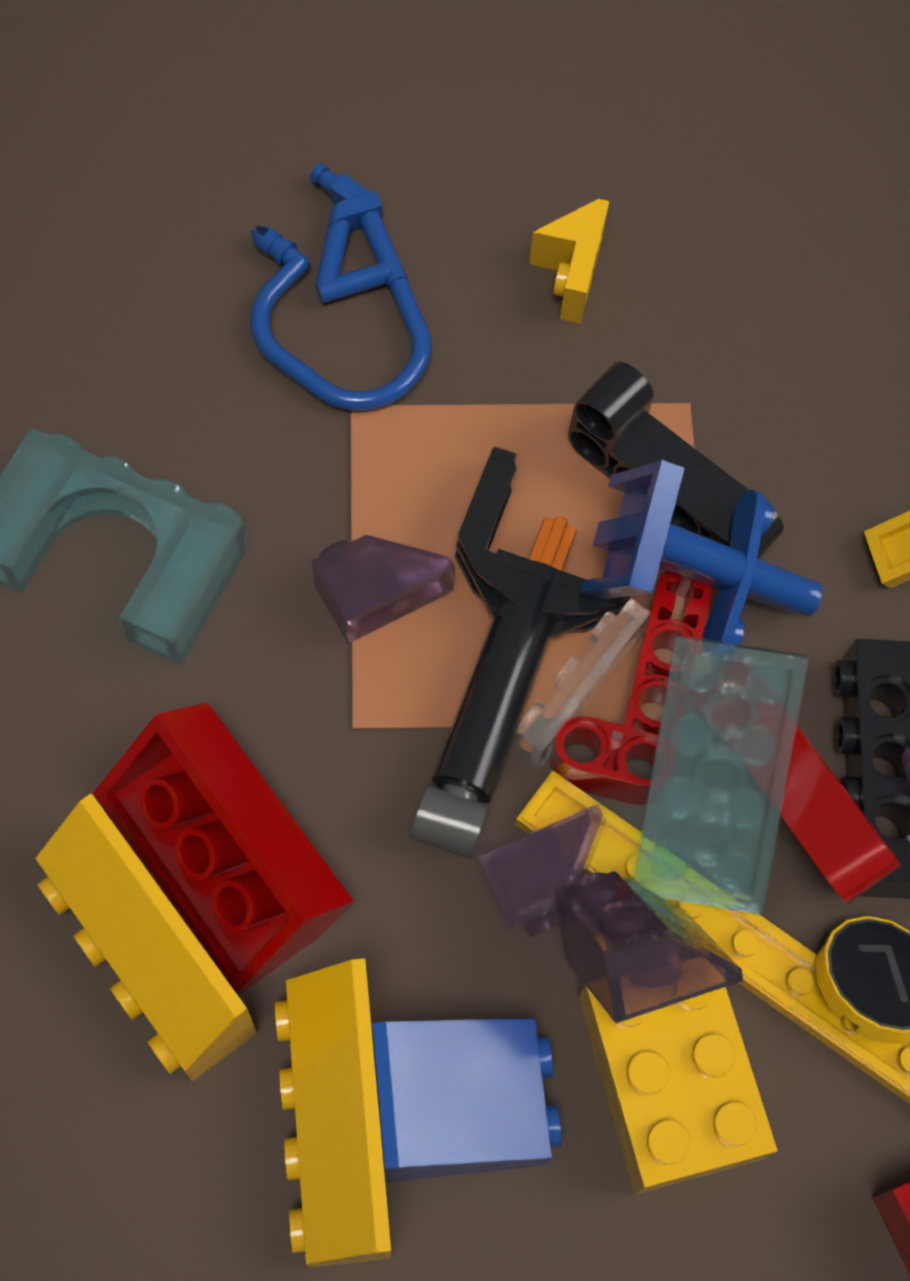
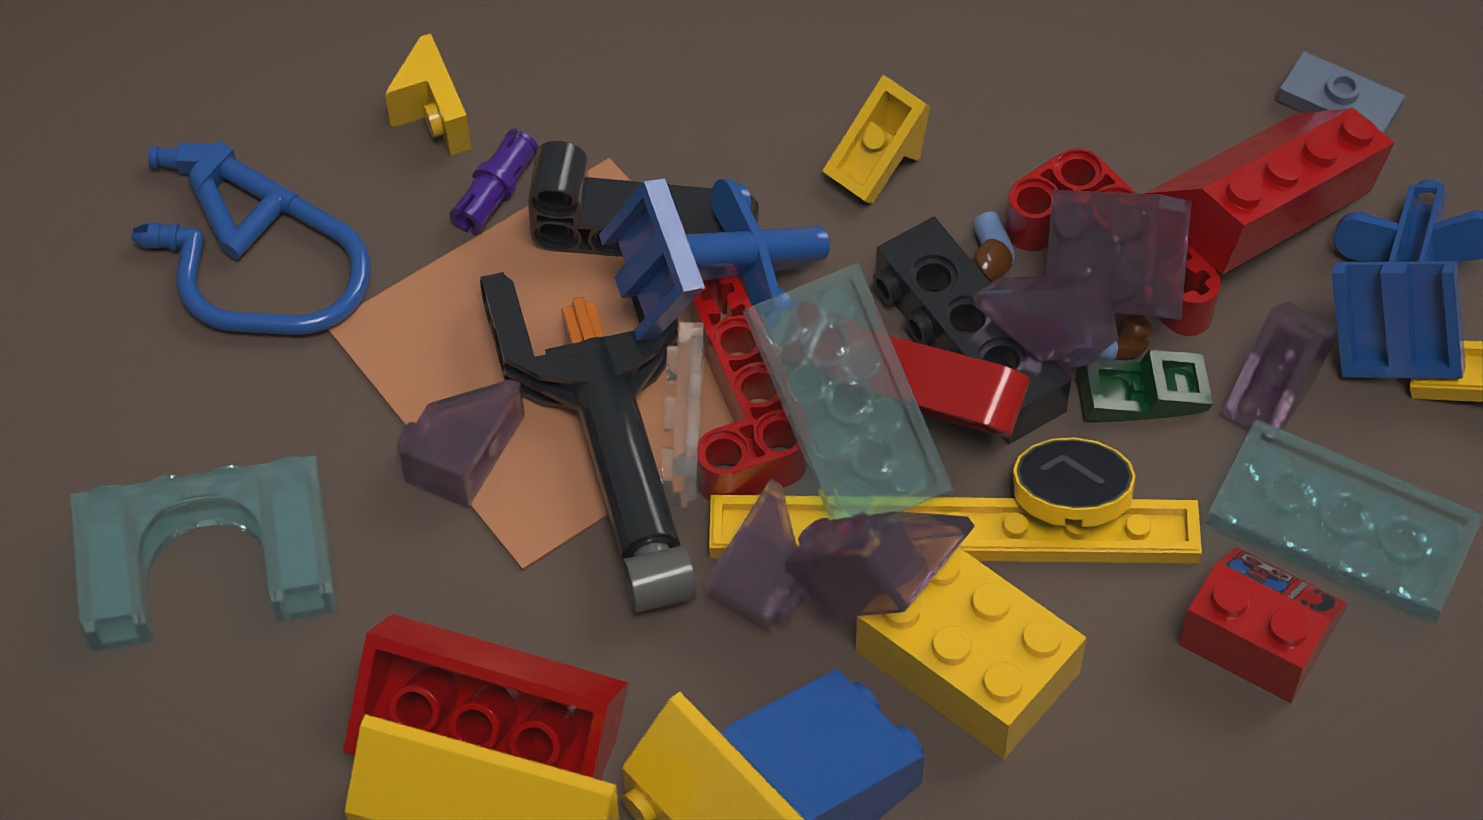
camera: 30 degrees left, 10 degrees down
(575, 365) = (494, 181): none -> dark purple pin

